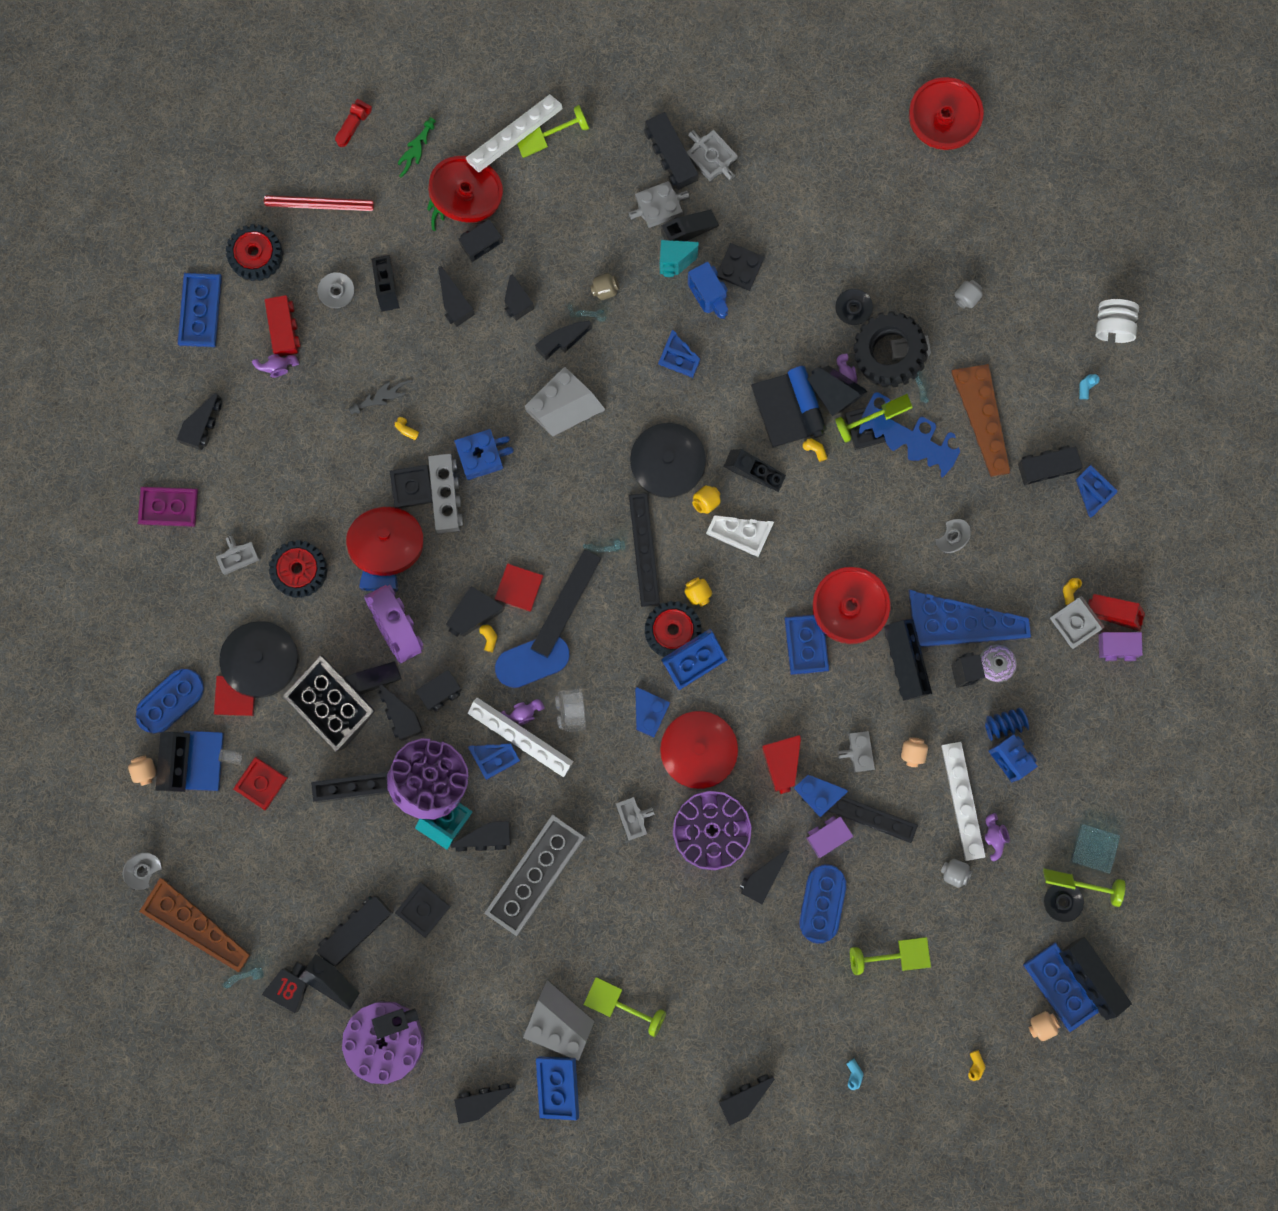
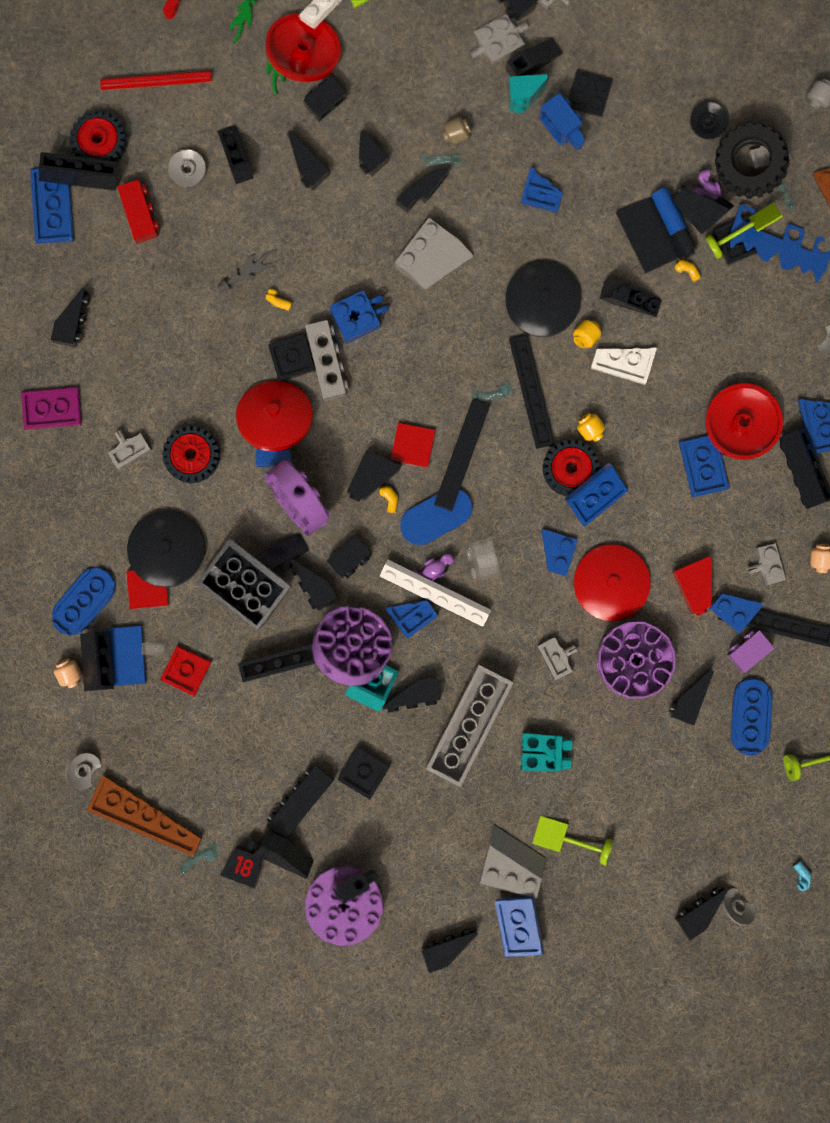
camera: 10 degrees left, 5 degrees up
(228, 280) = (78, 171): none -> black brick
(276, 365) = (138, 251): medium lavender piece -> none
(614, 910) = (550, 749): none -> teal hips
(790, 1105) = (737, 909): none -> light grey dish

